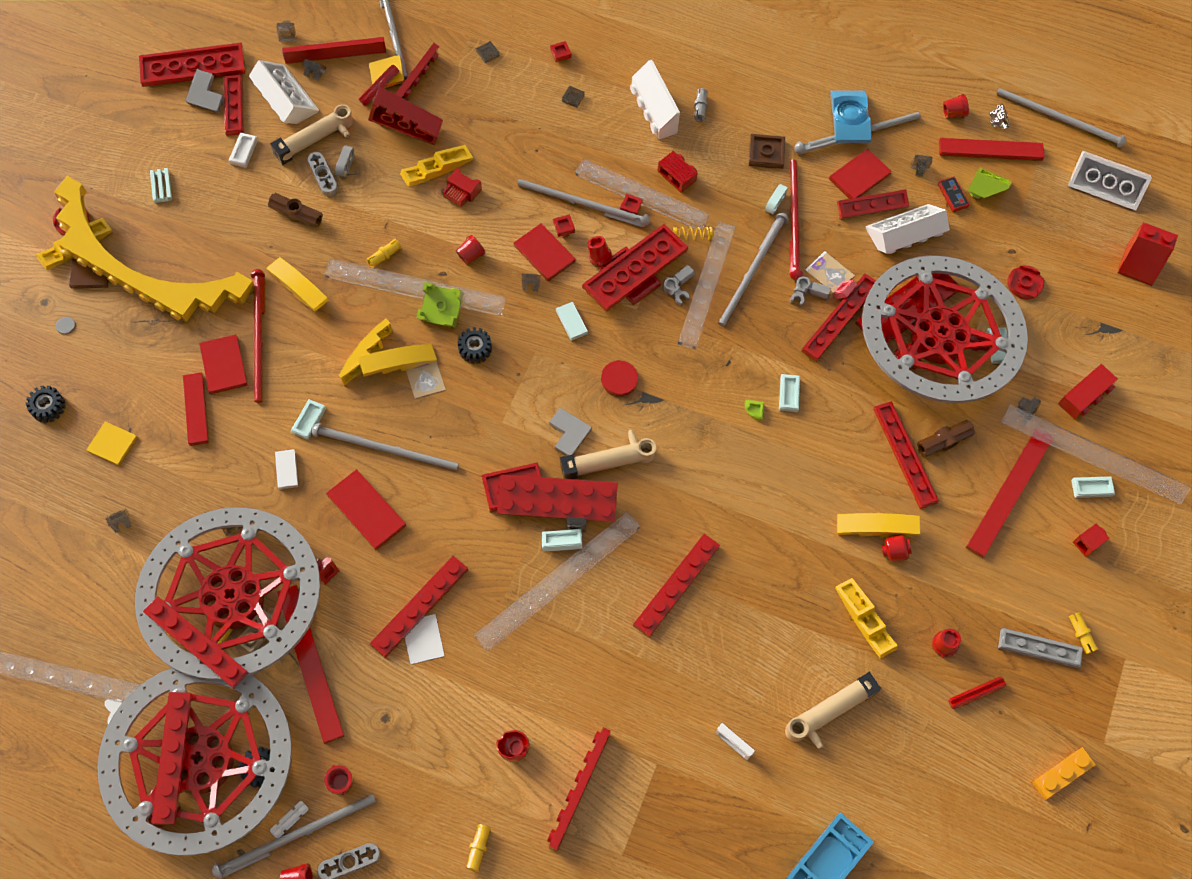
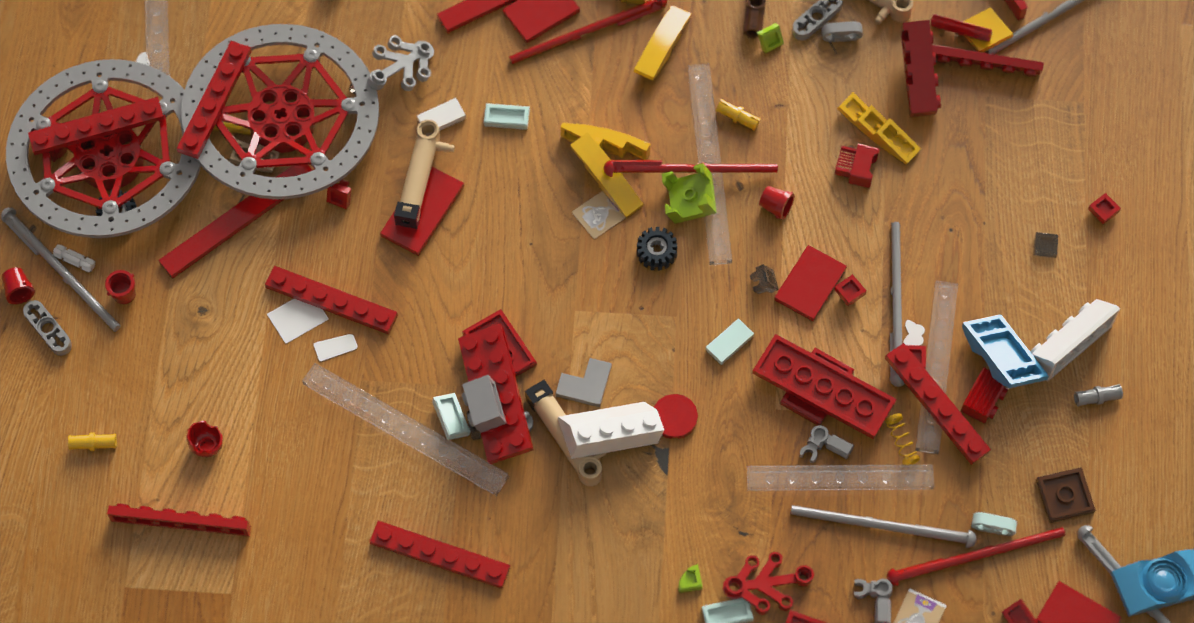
camera: 75 degrees right, 0 degrees up
(220, 465) = (419, 51): none -> light grey plant
(318, 430) = (497, 130): light grey bar -> none
(328, 209) = (770, 38): none -> lime tile
(366, 515) = (408, 209): none -> tan piece
(397, 348) = (656, 166): none -> red bar
(463, 616) = (335, 346): none -> white sticker
(488, 52) = (1067, 128): clear smoke tile -> none
(569, 505) = (483, 403): none -> light grey brick
(599, 251) = (830, 340): red piece -> none
(609, 199) = (915, 333): none -> white sticker
(618, 421) = (611, 429): none -> white slope
(652, 145) = (1003, 351): none -> dark azure slope
(675, 200) = (937, 404): none -> red plate
(774, 359) = (765, 583): none -> red plant

